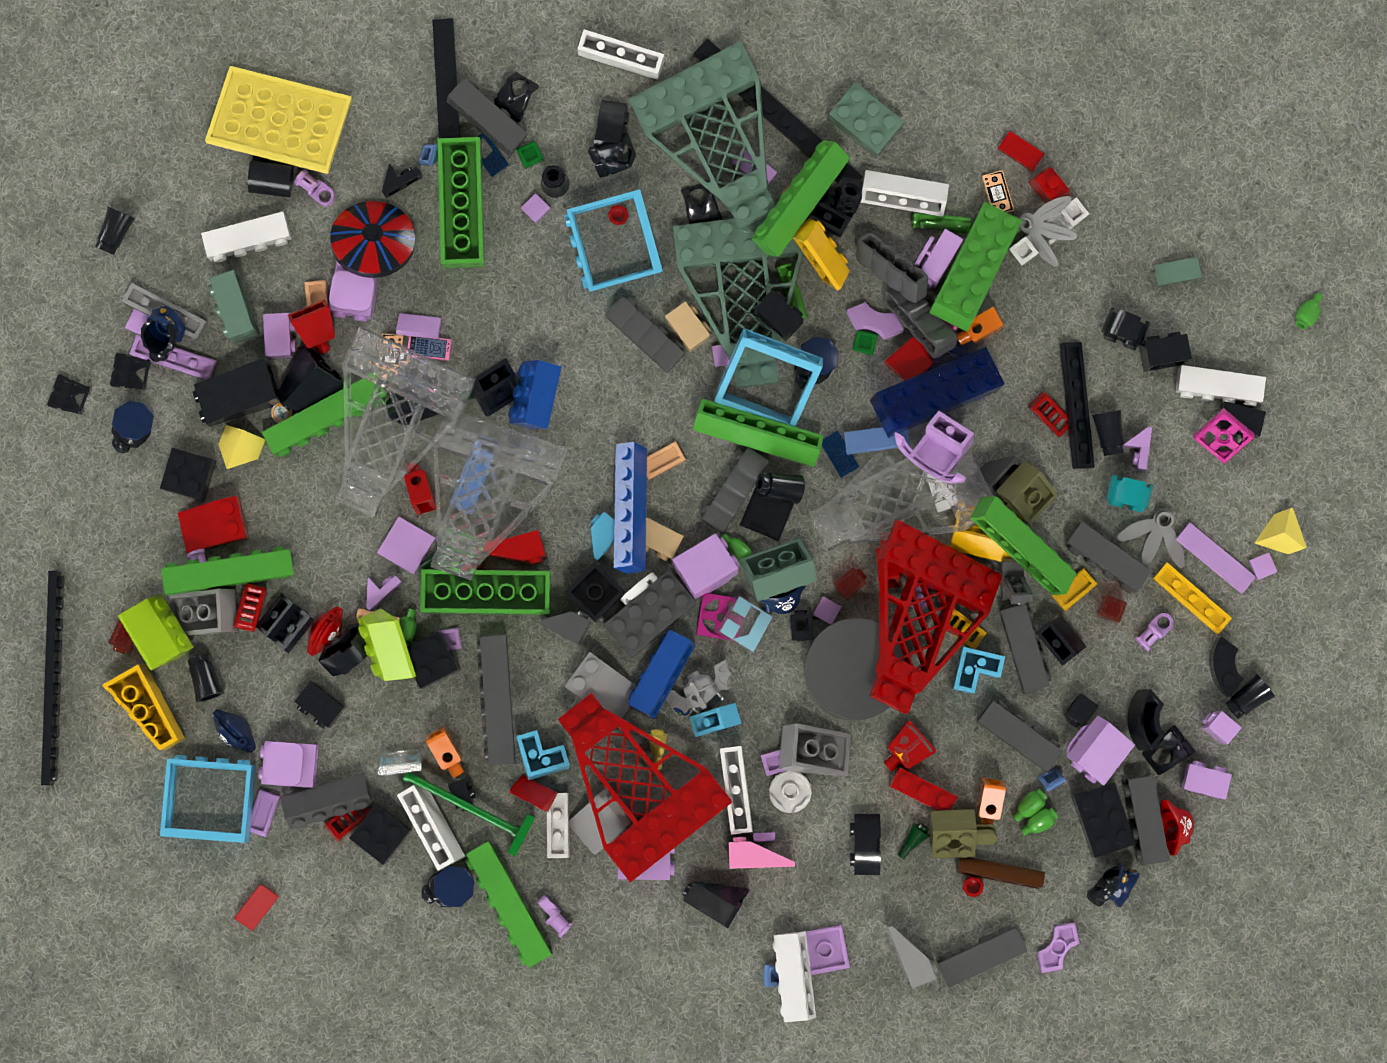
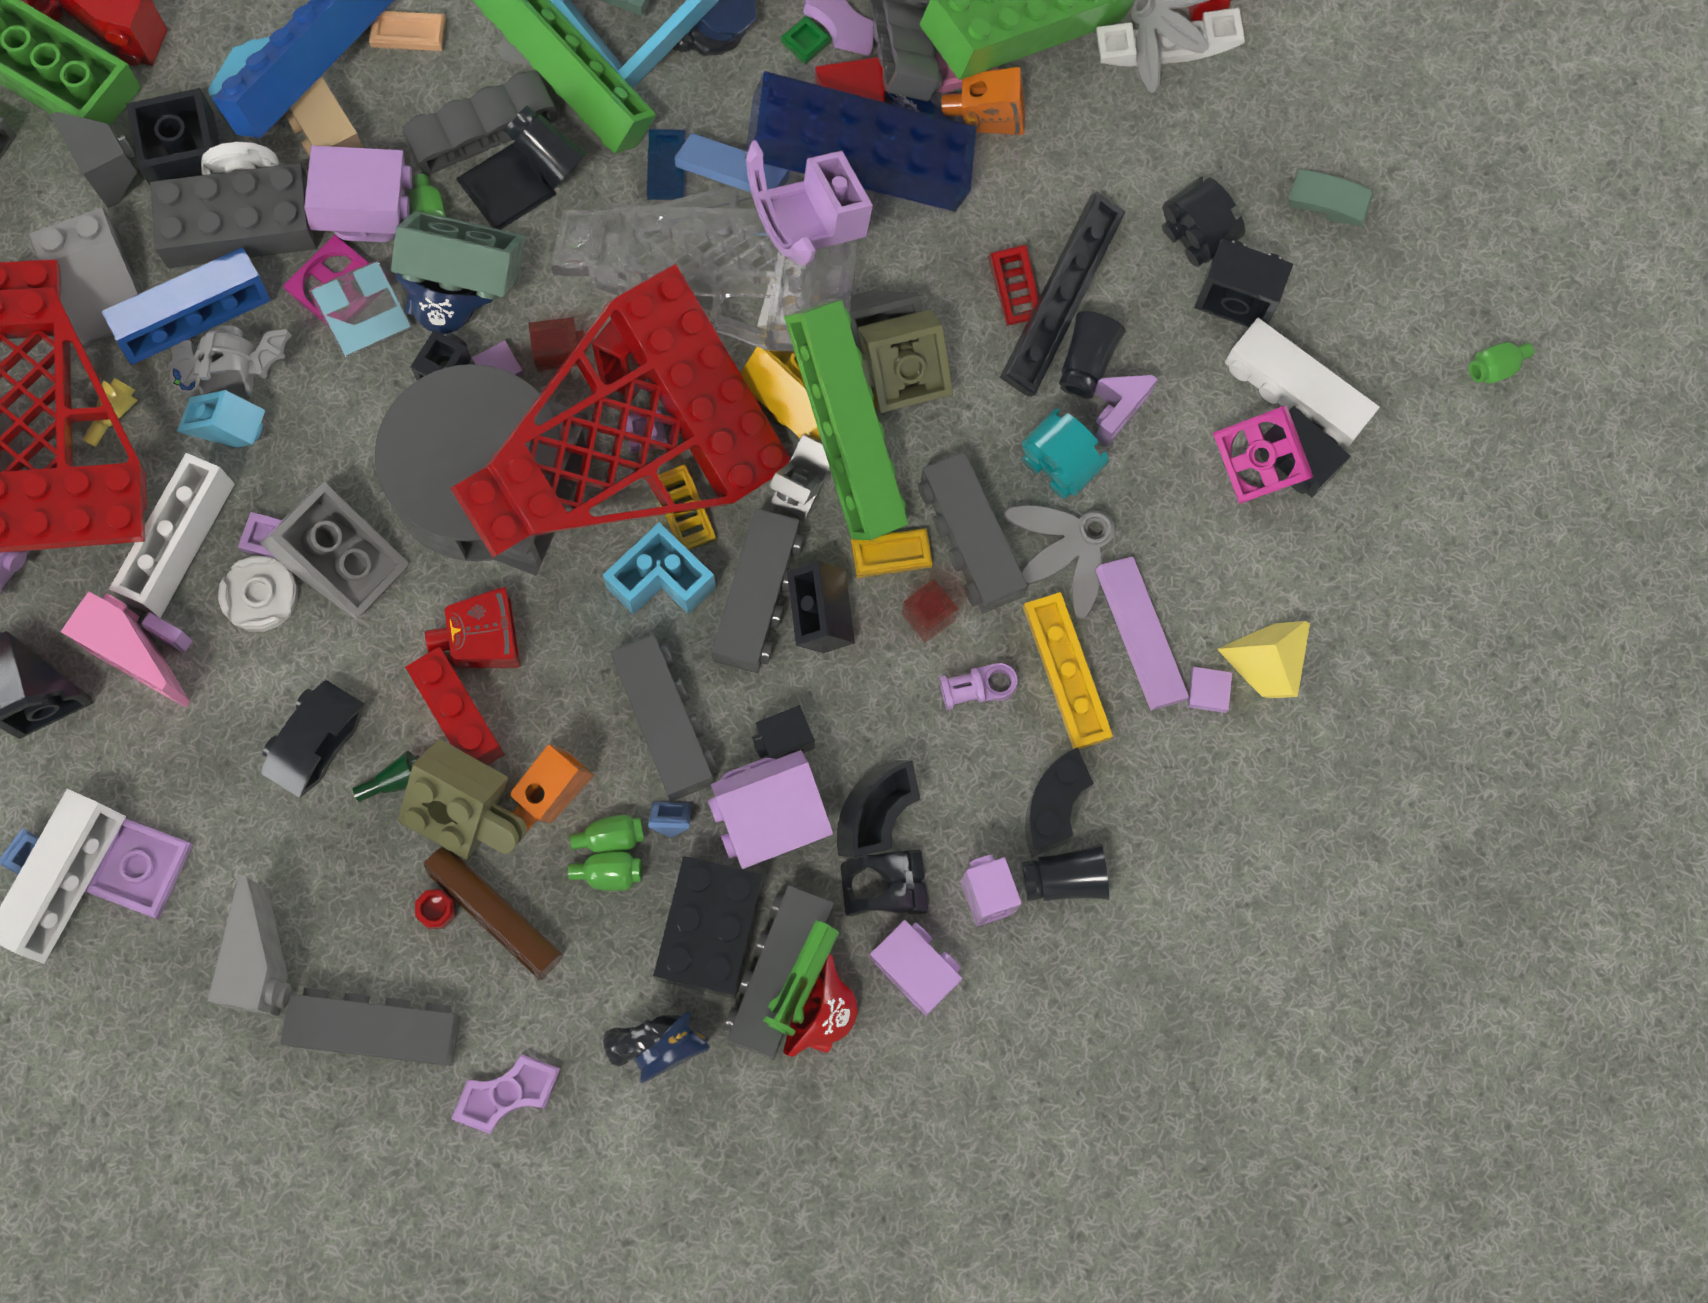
camera: 25 degrees right, 10 degrees down
(1161, 812) = (804, 972): none -> bright green piece

